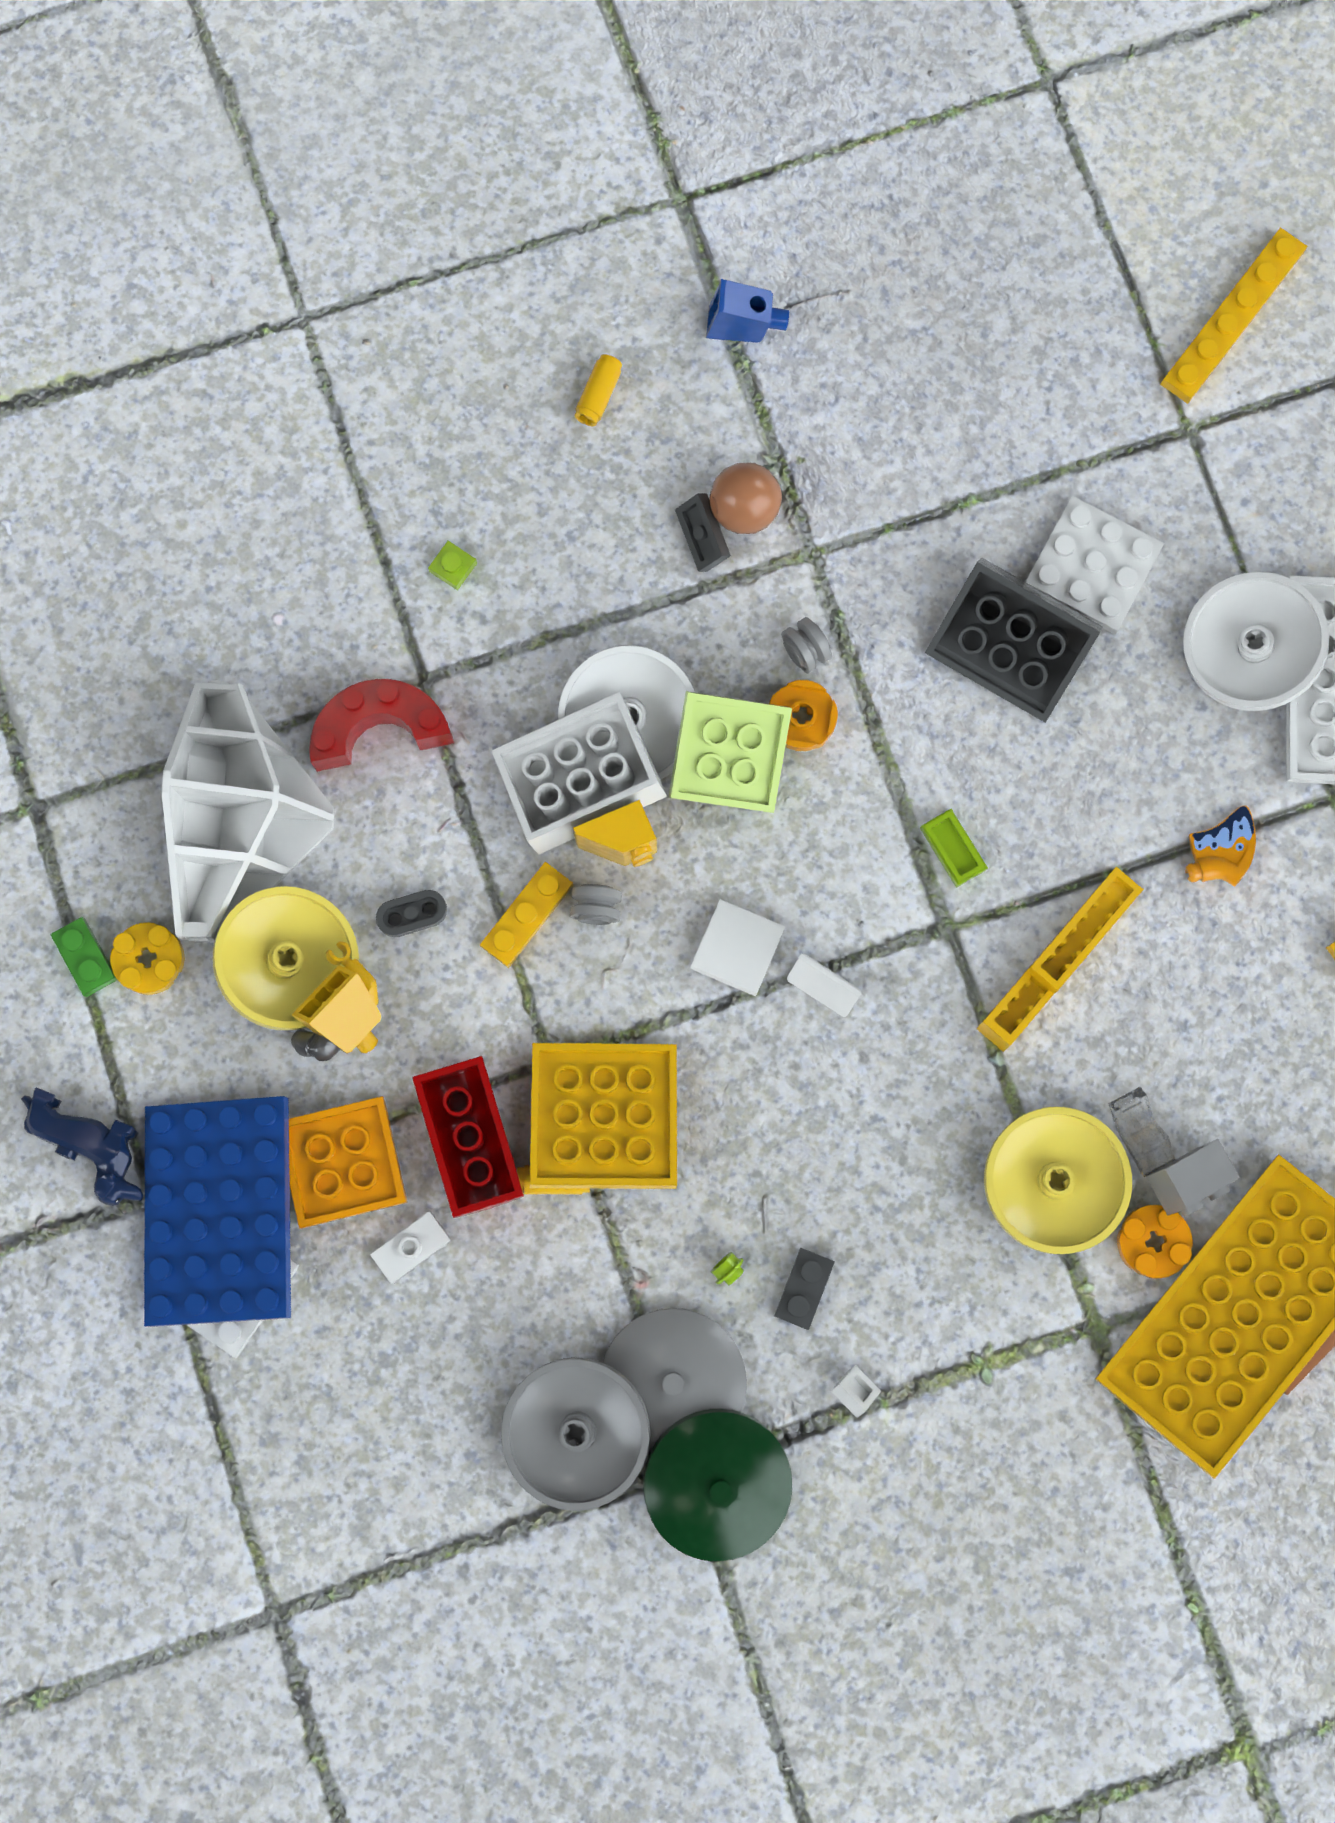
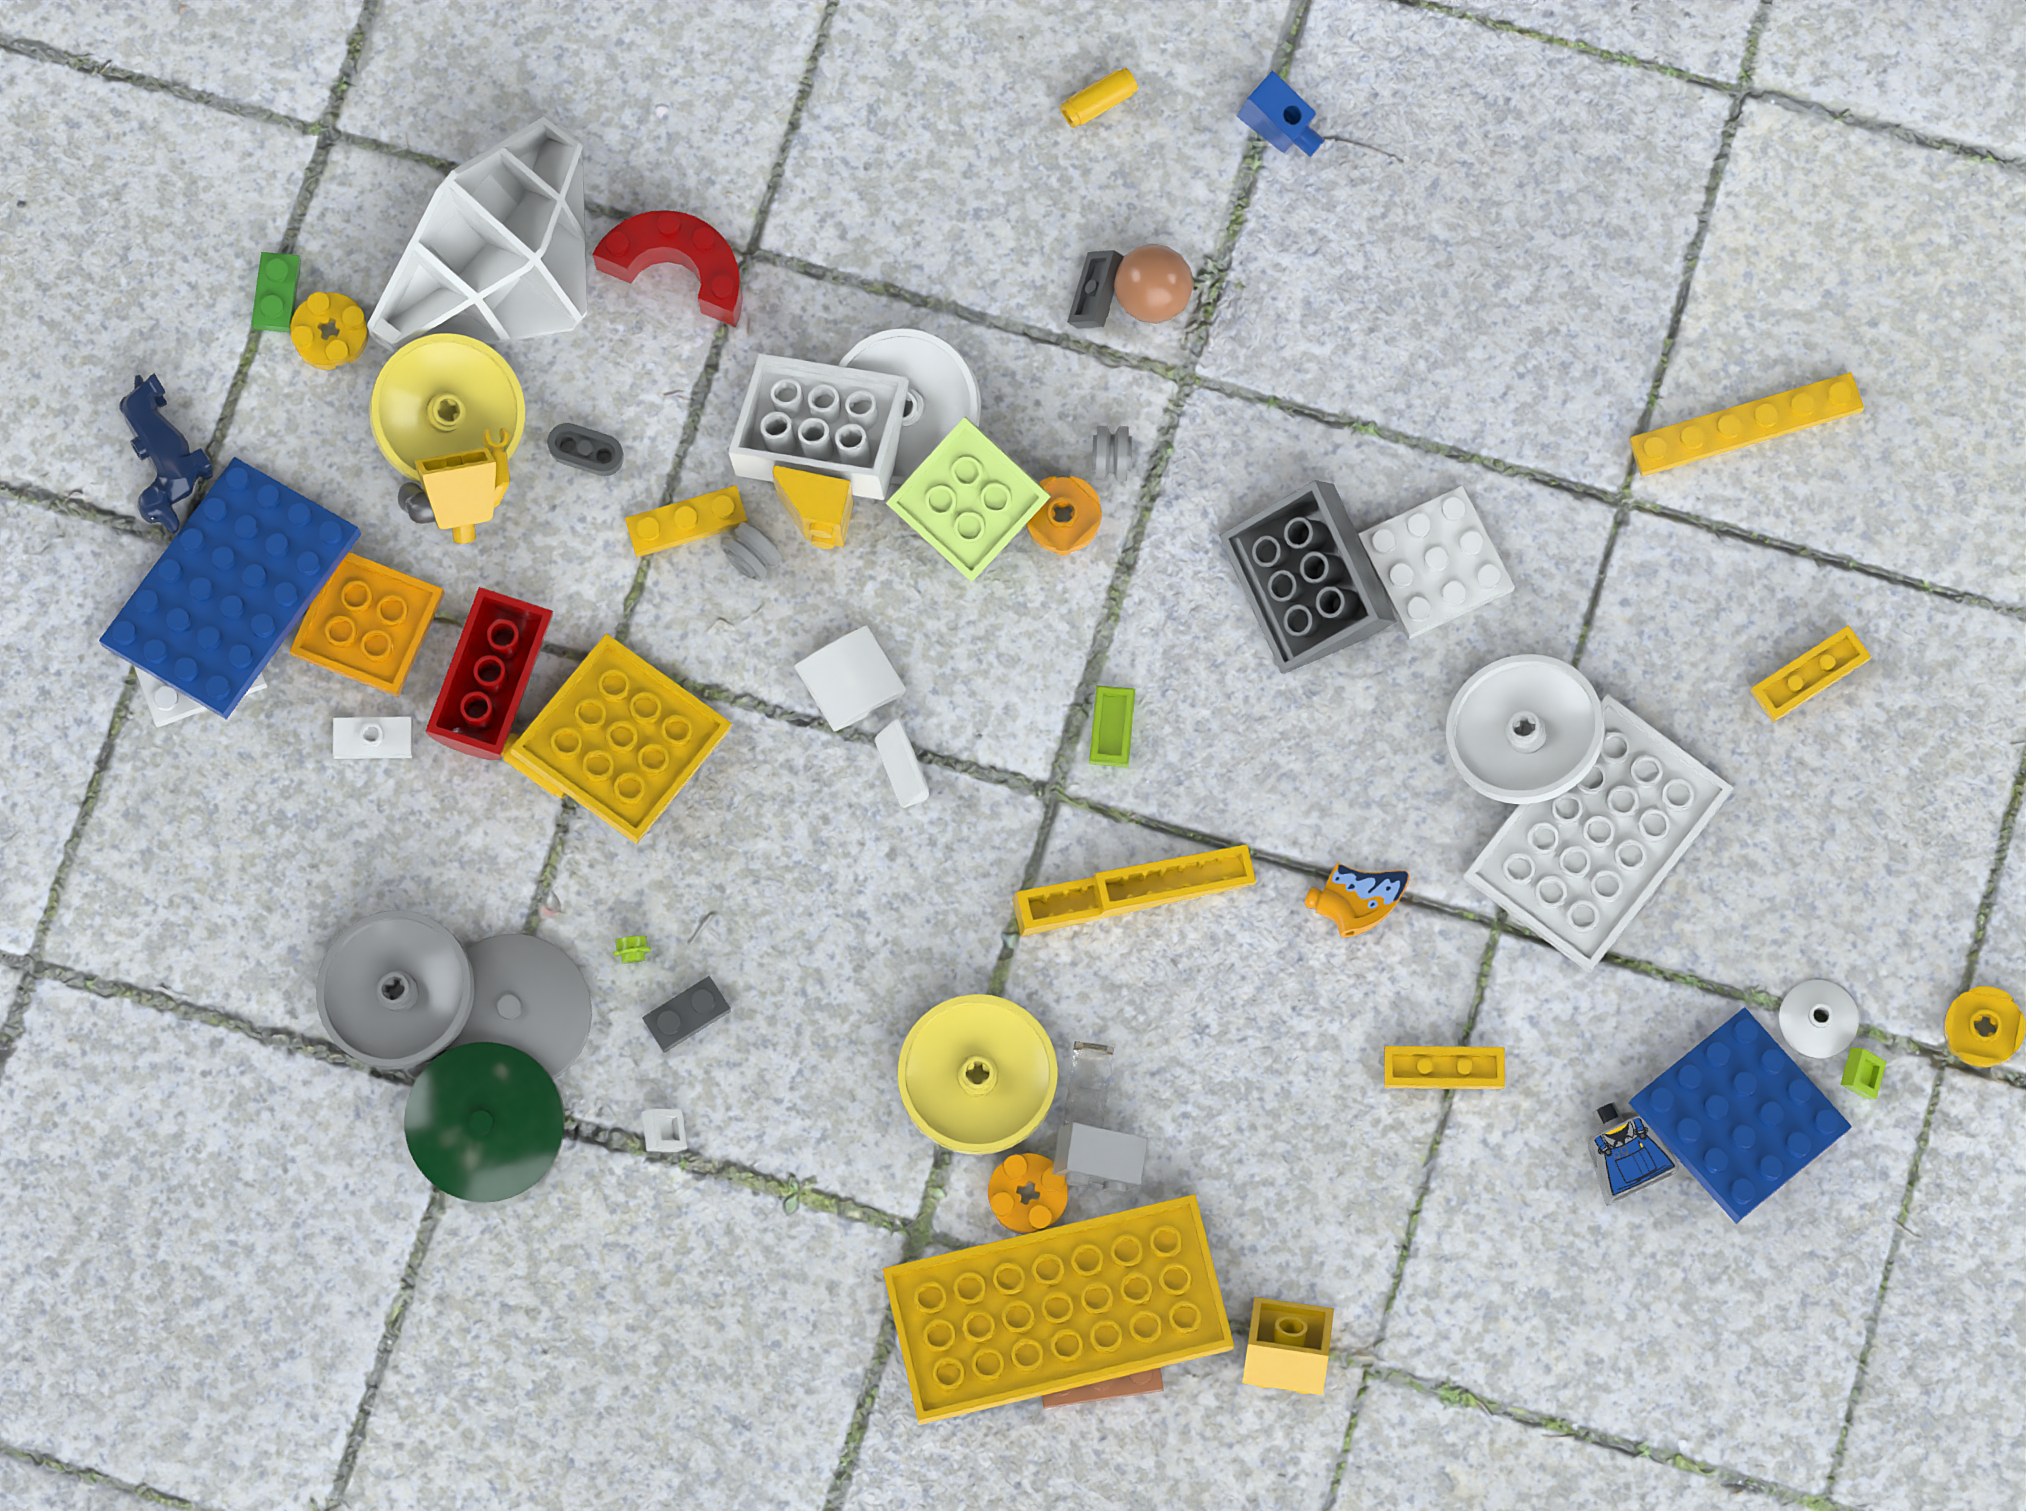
camera: 40 degrees right, 5 degrees down
(452, 565) = (850, 167): lime plate -> none

